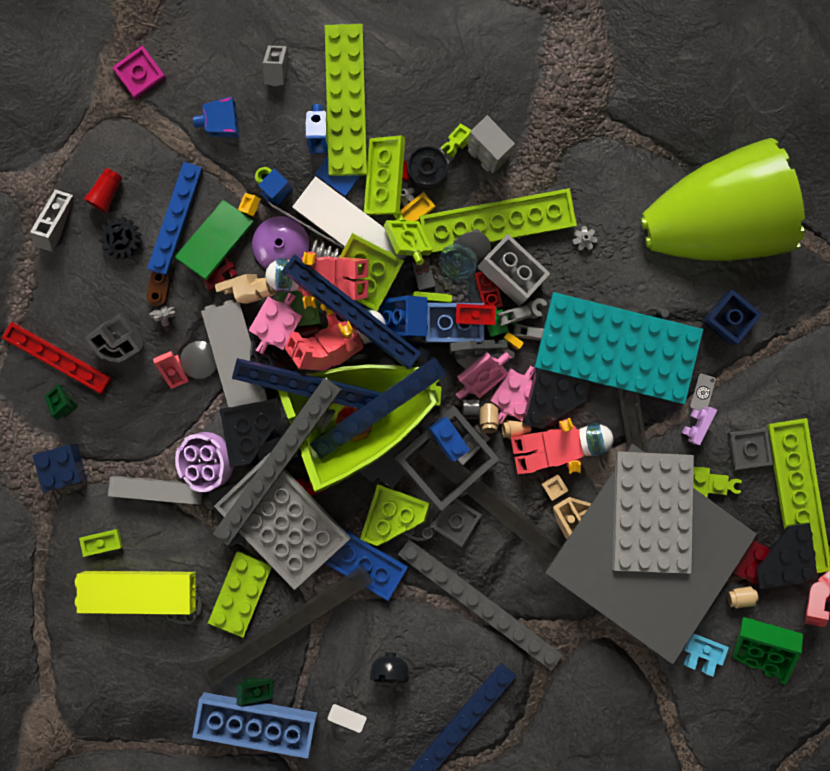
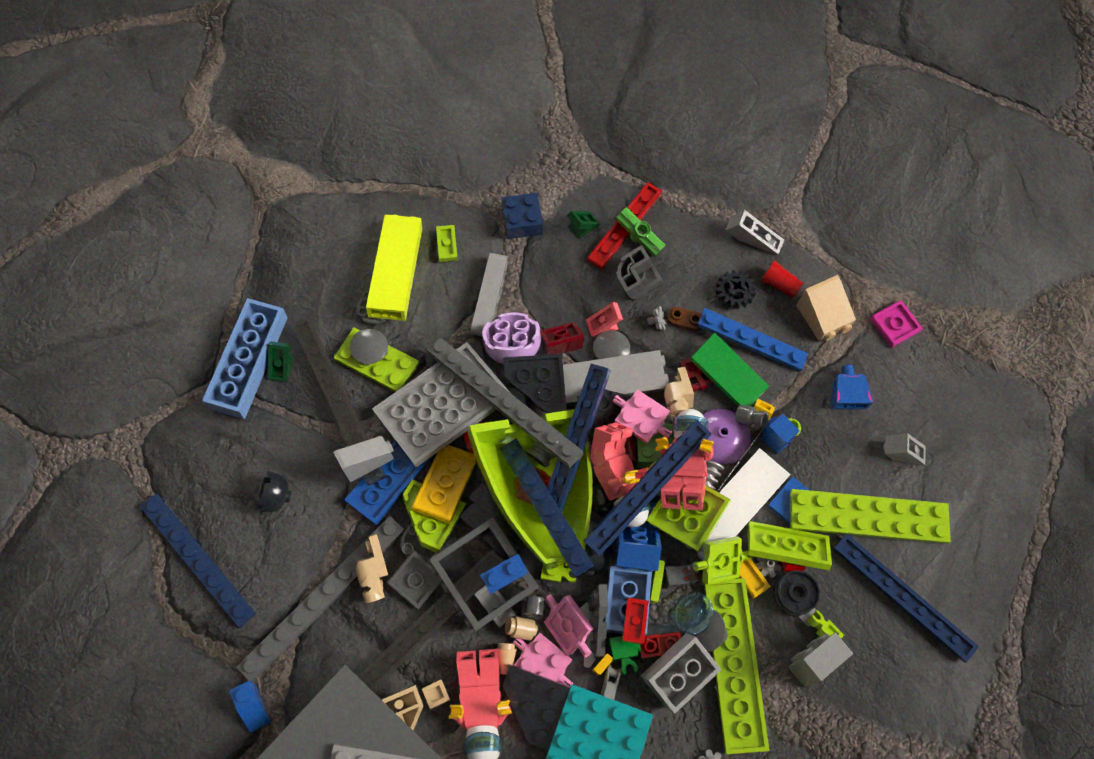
camera: 90 degrees right, 20 degrees down
(56, 350) = (633, 224): none -> bright green piece
(133, 143) = (826, 309): none -> tan slope
(195, 411) = (562, 338): none -> dark red slope
(229, 604) = (368, 346): none -> dark grey dish
(260, 219) = (748, 415): none -> dark grey piece
(317, 130) = (838, 480): blue torso -> none
(346, 718) = (232, 448): white sticker -> none
(349, 588) = (364, 457): none -> light grey slope
(362, 507) = (445, 483): none -> yellow tile
(419, 67) = (906, 598): none -> dark blue plate
(453, 563) = (371, 569): none -> tan plate
(523, 312) = (633, 677): light grey piece -> none
(583, 650) = (250, 706): none -> blue slope

